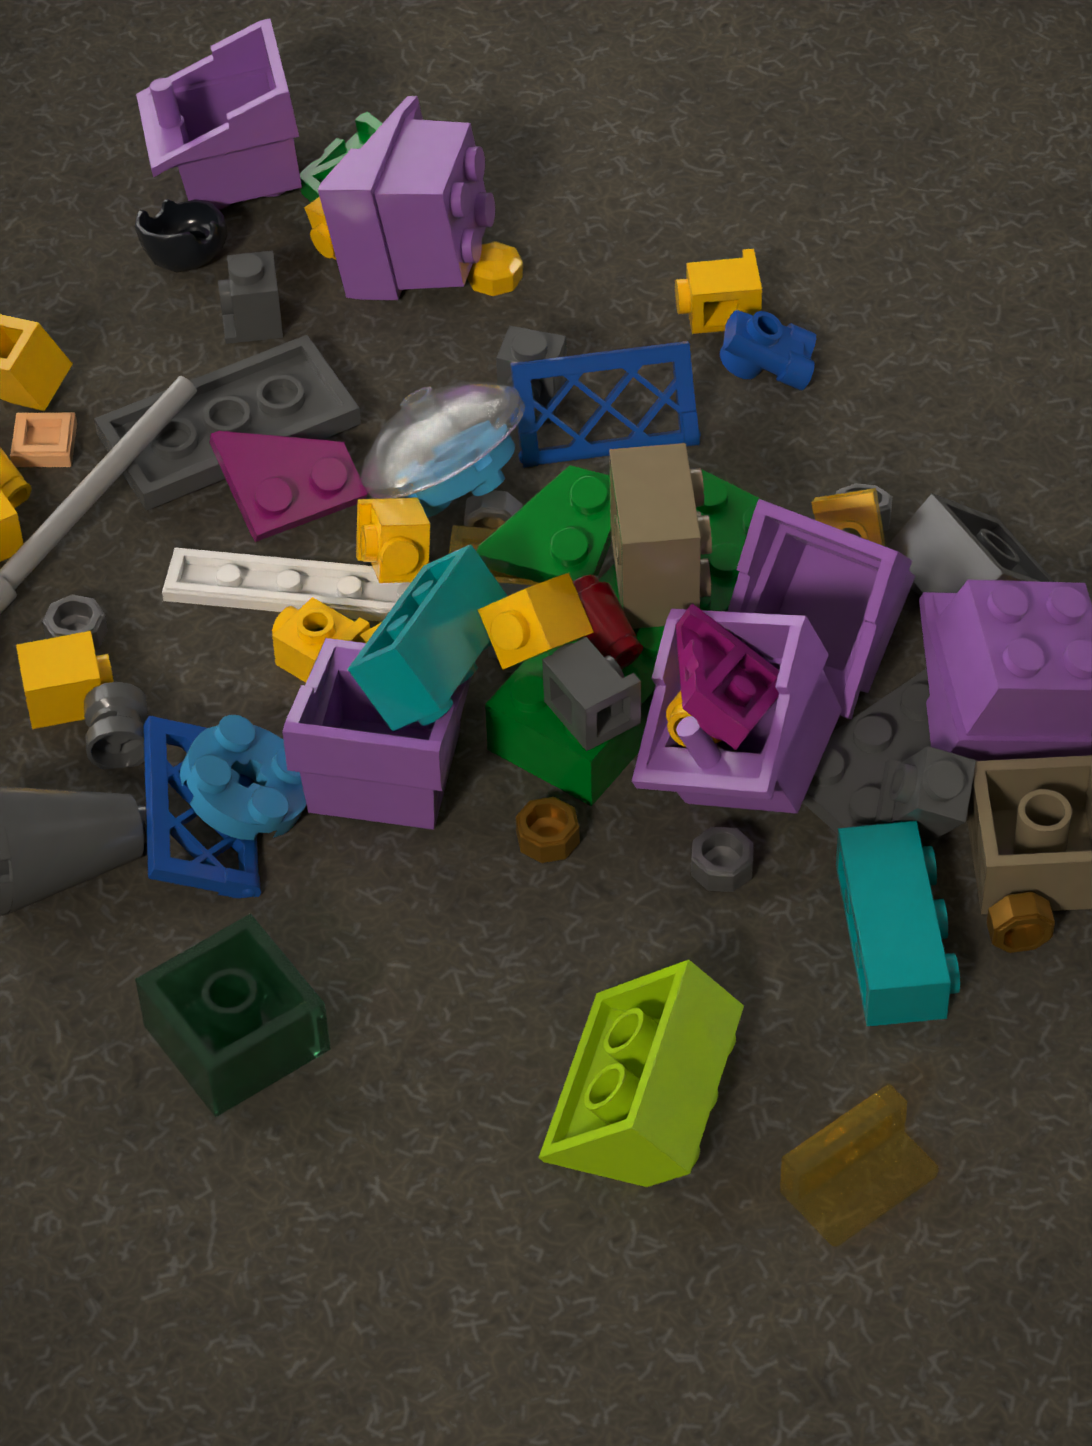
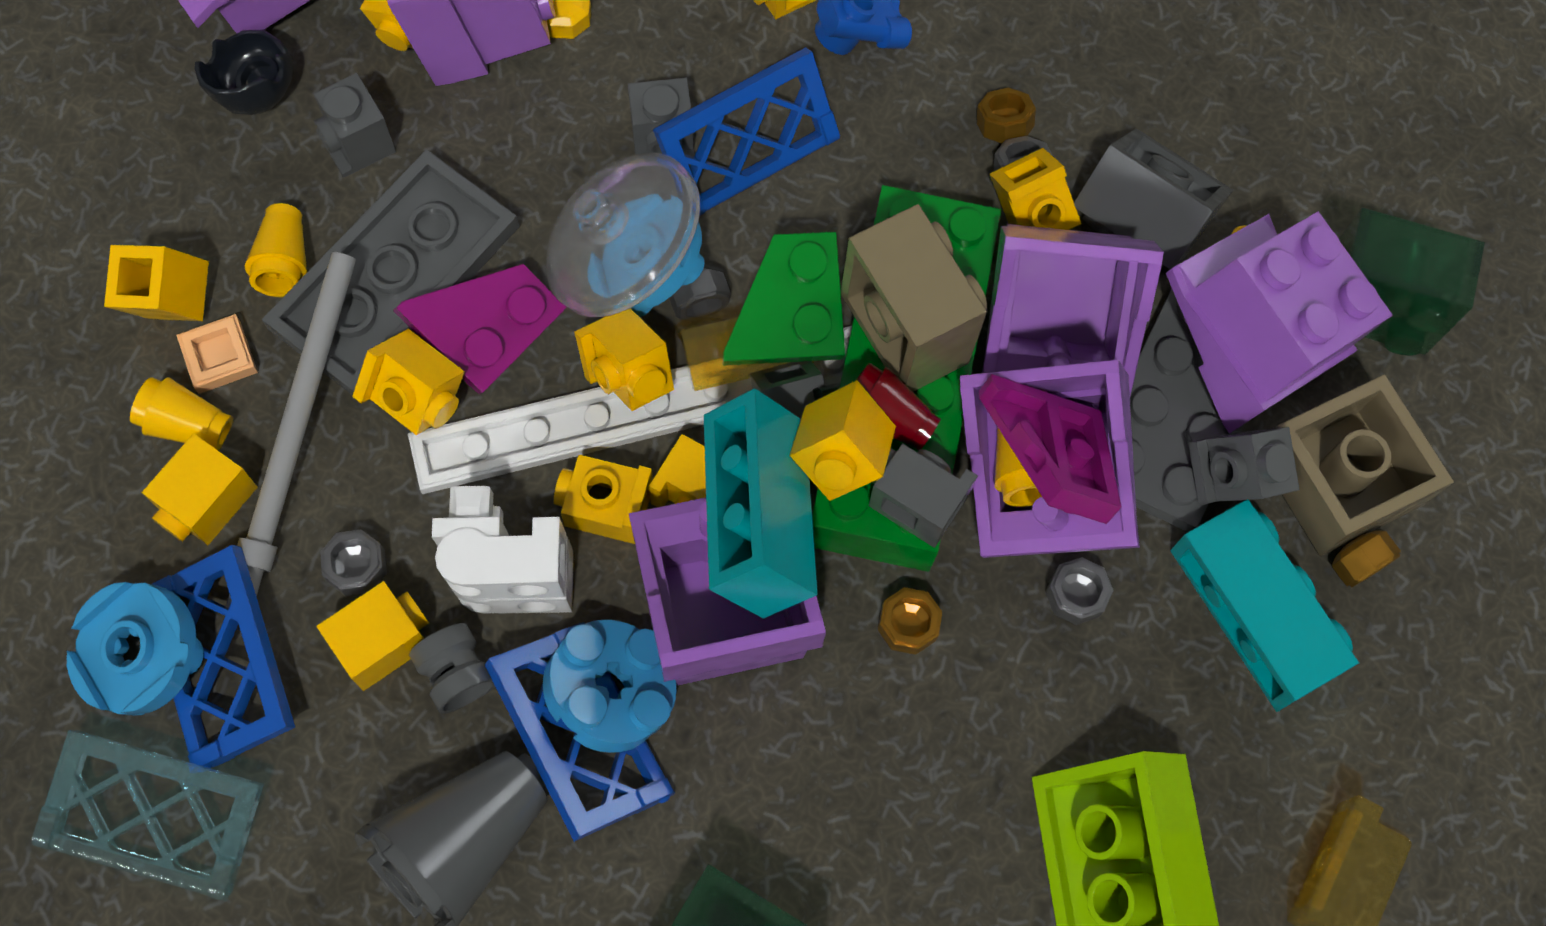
camera: 30 degrees left, 20 degrees up
(135, 374) = (277, 251): none -> yellow cone
(194, 500) = (410, 382): none -> yellow brick
(200, 656) = (499, 570): none -> white hips
(868, 464) = (1005, 114): none -> pearl gold tile

